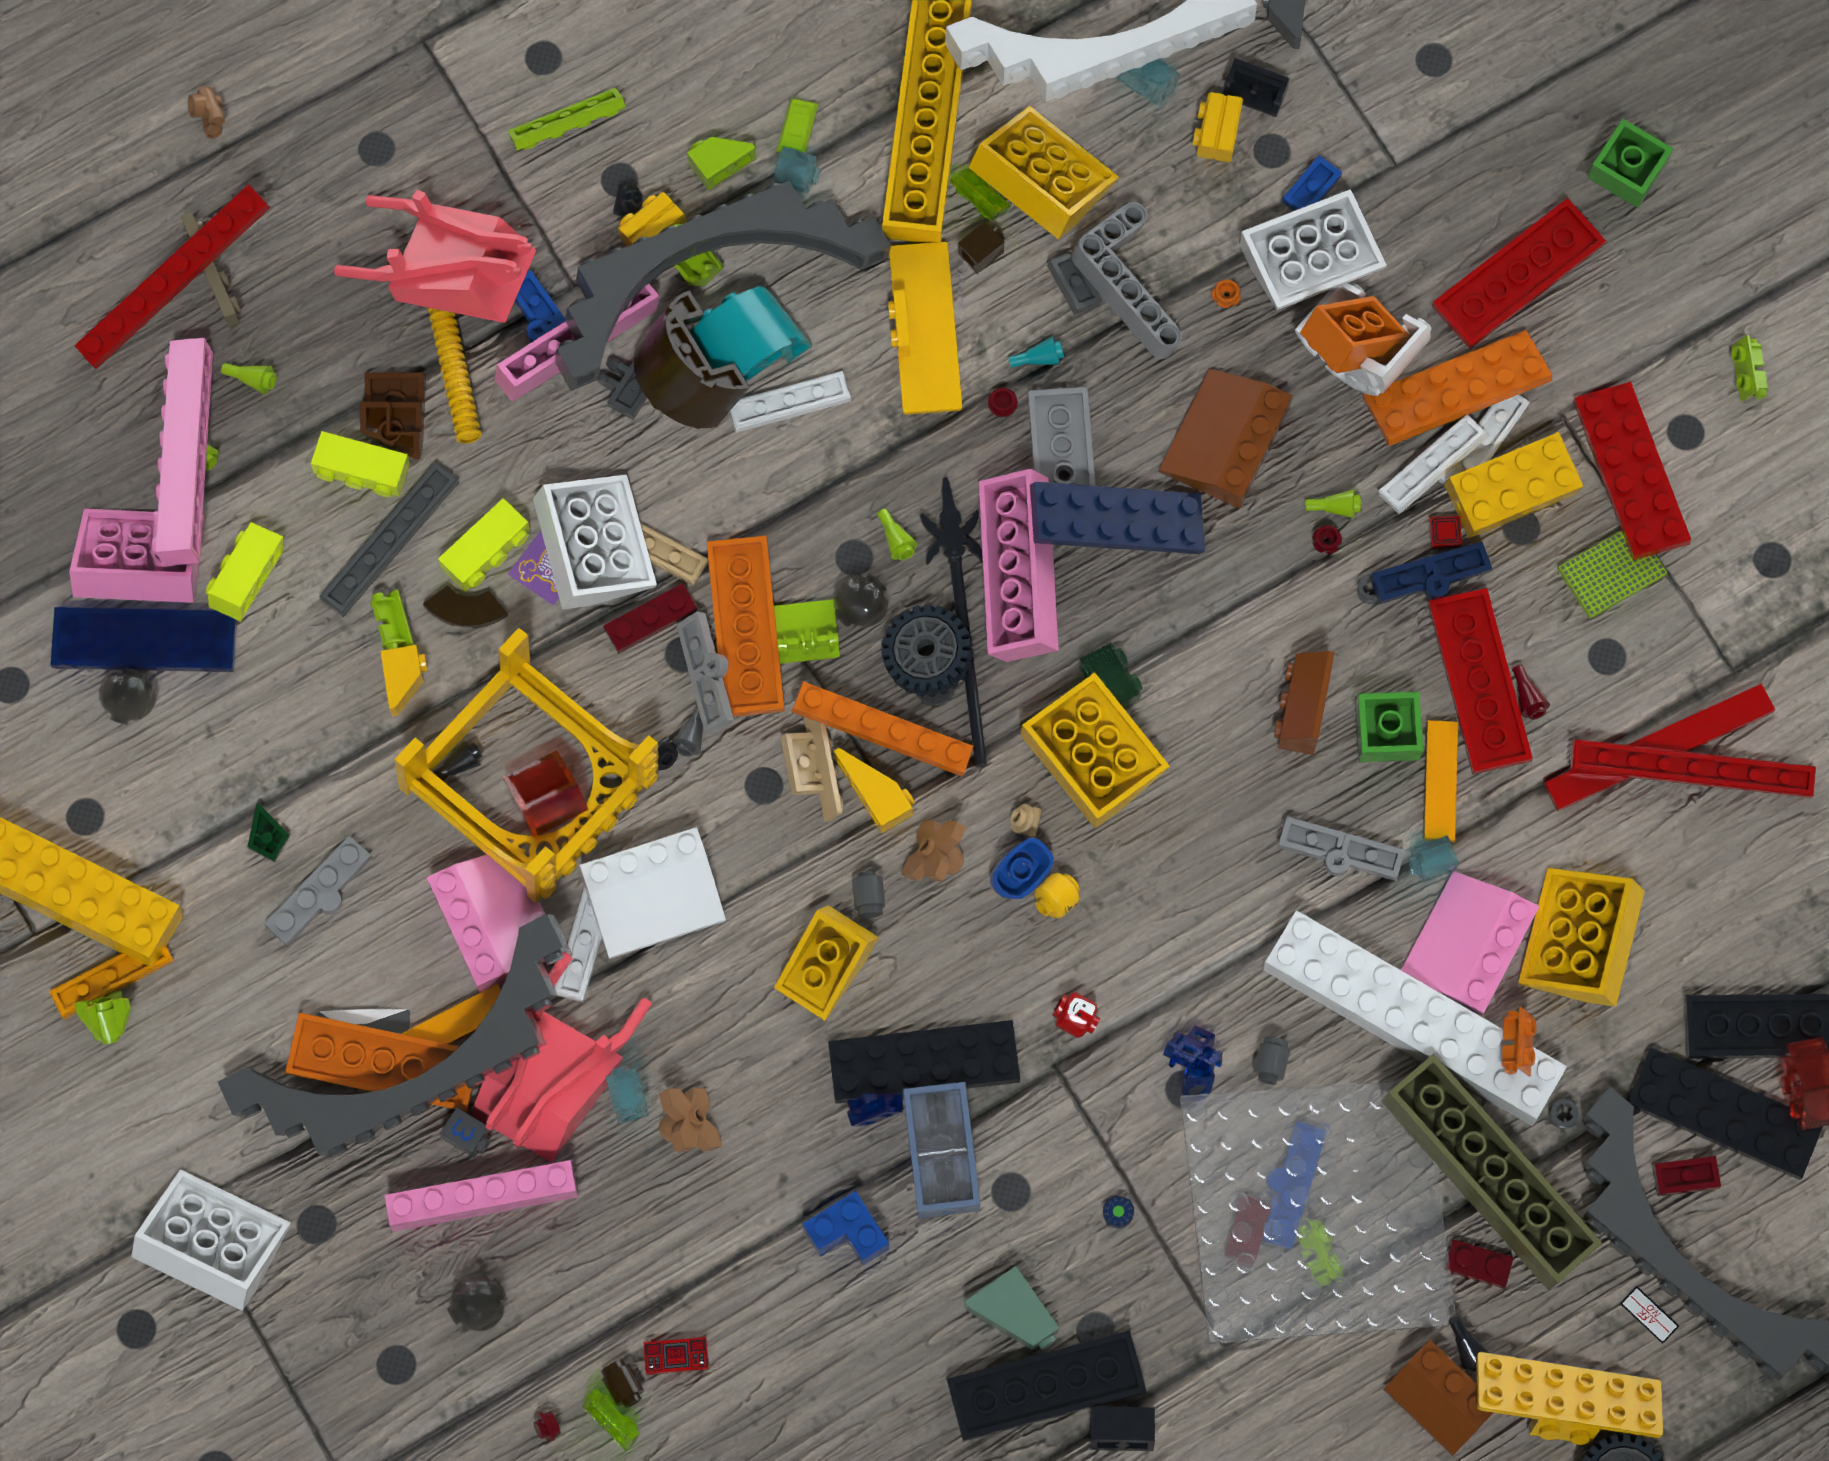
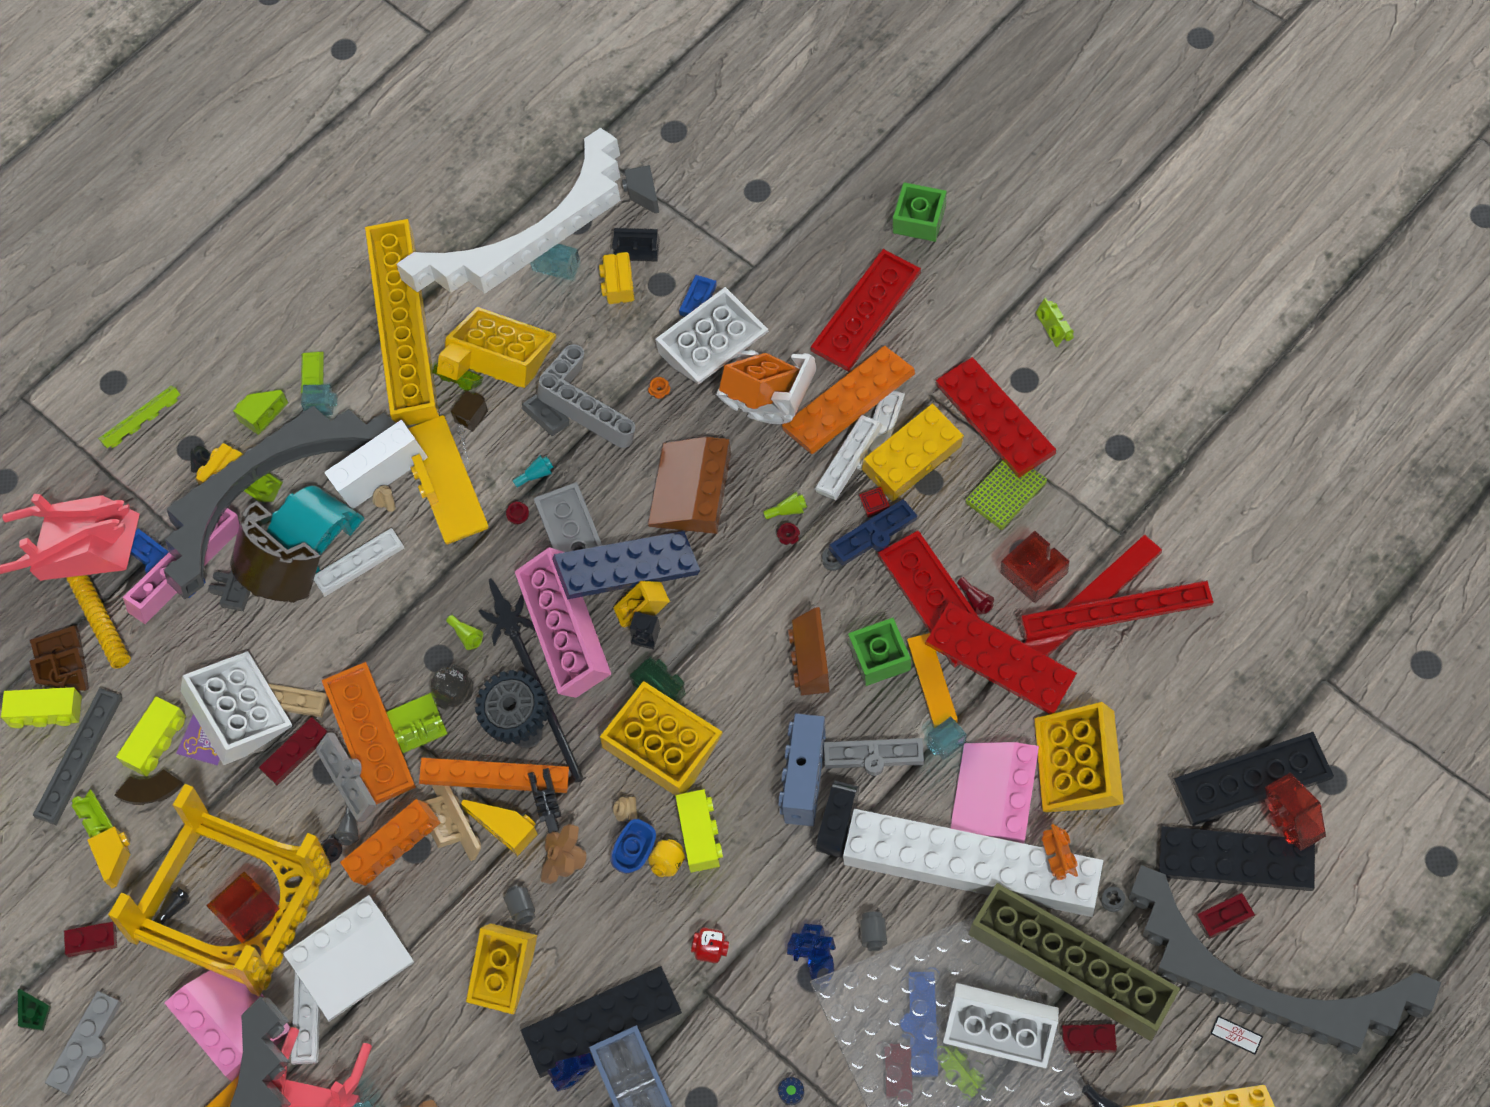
camera: 10 degrees left, 10 degrees down
(354, 770) = (90, 939): none -> dark red plate
(738, 772) = (390, 842): none -> orange brick
(843, 327) = (383, 498): none -> tan plate
(846, 283) = (375, 464): none -> white slope
(935, 780) = (546, 801): none -> black hinge
(981, 178) = (454, 361): none -> yellow brick
(1105, 874) = (699, 830): none -> neon yellow brick
(1114, 606) = (644, 630): none -> black brick
(1120, 570) = (644, 598): none -> yellow slope
(1252, 844) = (802, 769): none -> sand blue brick
(1273, 915) = (837, 819): none -> black brick
(1382, 1217) = (1001, 1025): none -> white slope
(1531, 783) = (1001, 658): none -> red plate
(1607, 682) = (1031, 570): none -> clear red piece

